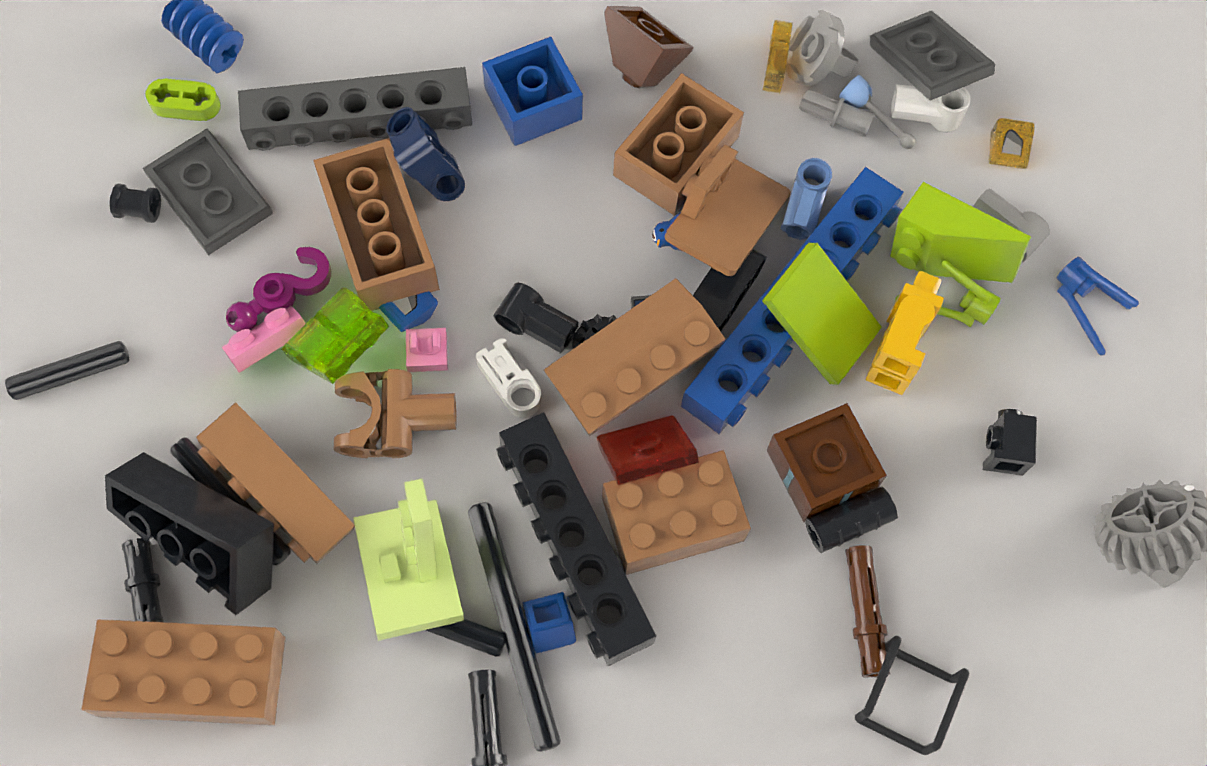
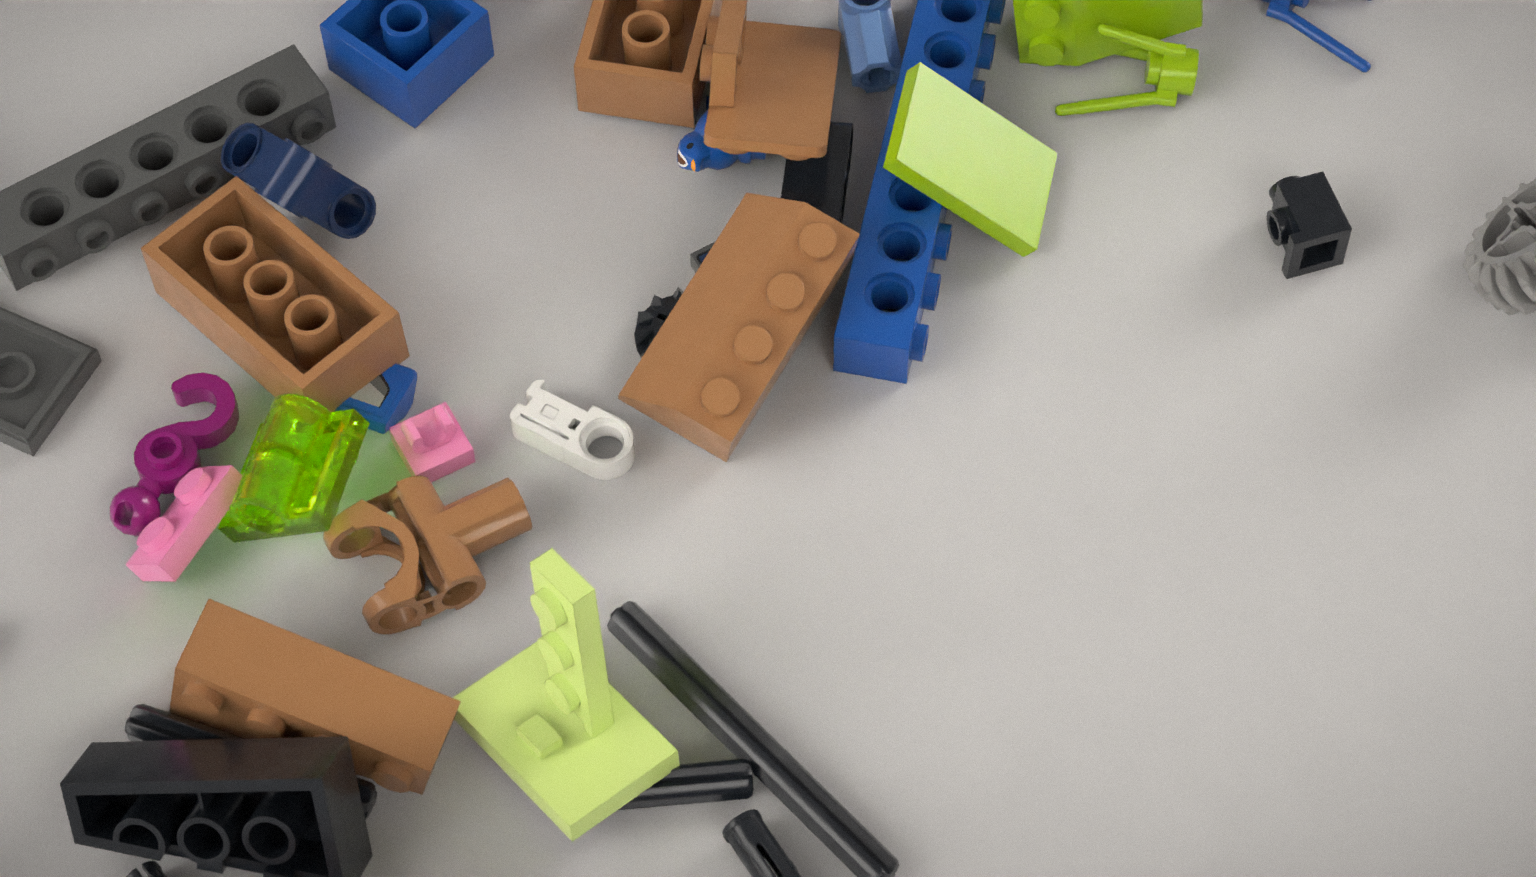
camera: 20 degrees left, 10 degrees down
(527, 313) = (552, 334): black piece -> none
(537, 440) = (664, 490): black brick -> none
(549, 622) = (802, 719): blue slope -> none
(647, 449) = (820, 432): clear red tile -> none
(675, 514) = (900, 499): medium nougat brick -> none
(825, 461) = (1073, 347): reddish brown container -> none
(851, 519) = (1145, 408): black axle -> none
(868, 619) = (1241, 534): reddish brown pin -> none
(893, 651) = (1393, 542): black piece -> none
(908, 320) = (1097, 166): yellow hips -> none

